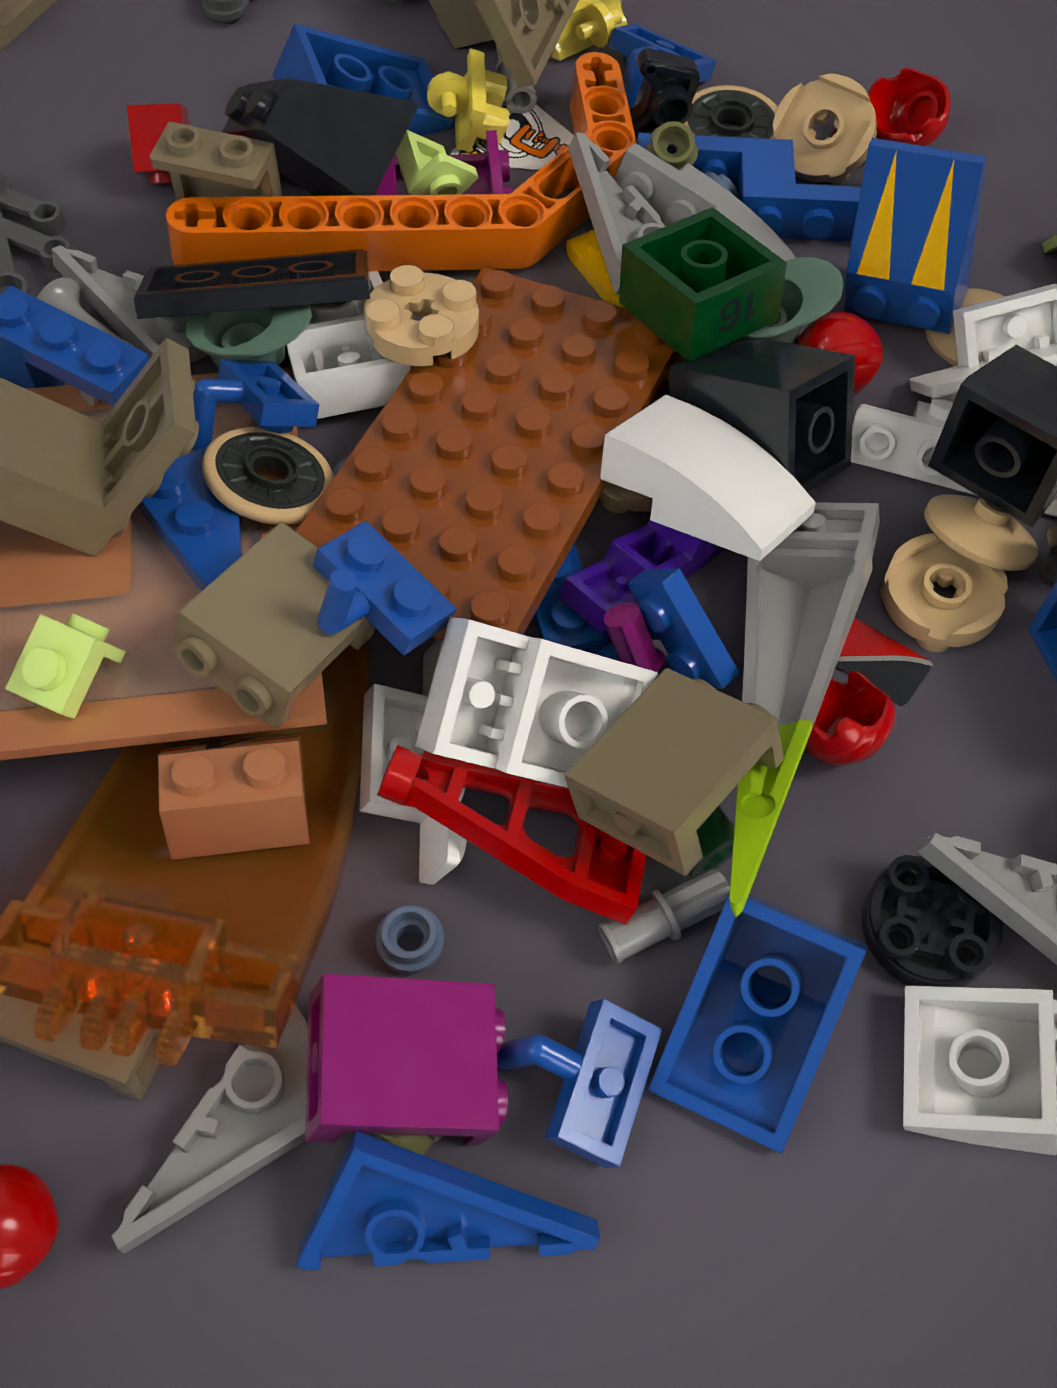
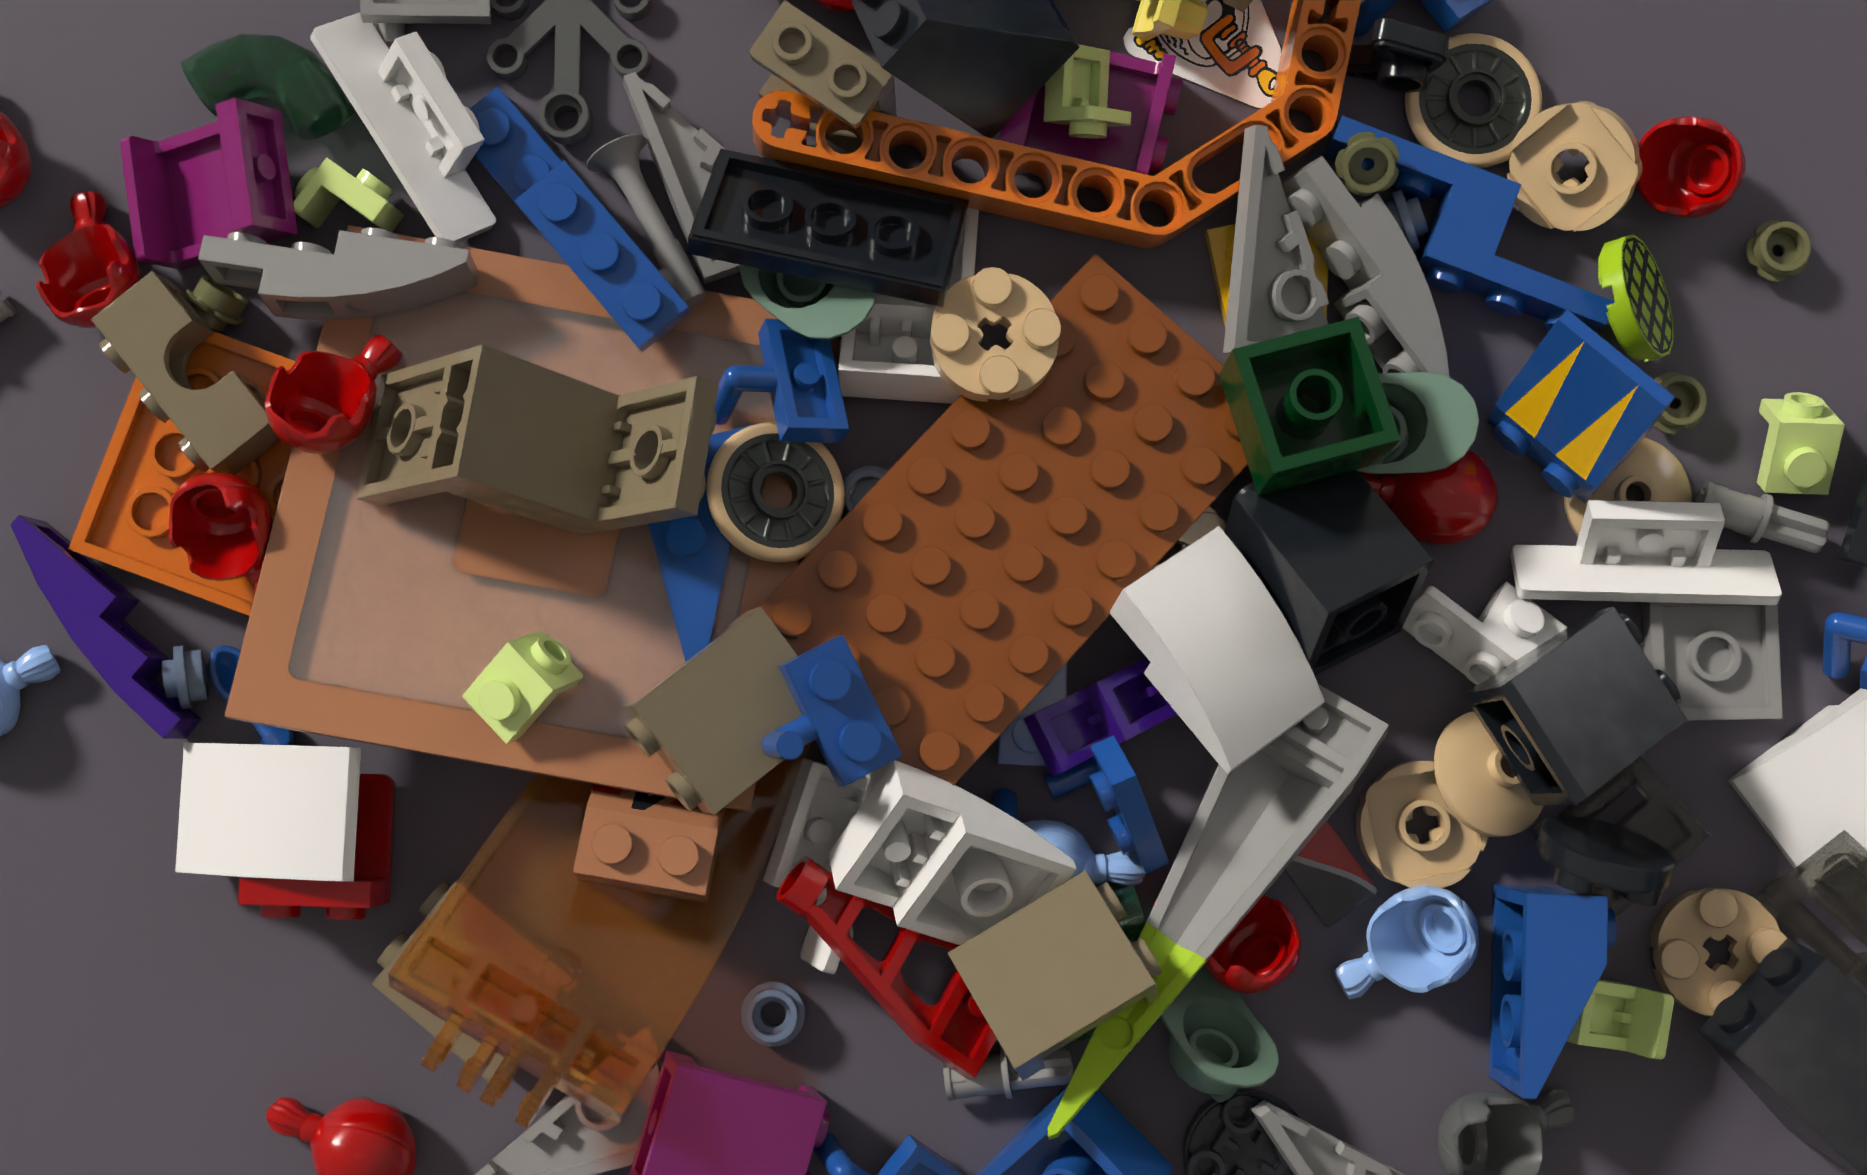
camera: 25 degrees right, 25 degrees up
(632, 637) = (1078, 803): magenta piece -> none
(851, 820) = (1217, 1039): none -> sand green piece
(987, 255) = (1691, 400): none -> olive plate
(988, 669) = (1415, 941): none -> light blue hair
(1002, 148) = (1794, 245): none -> olive plate

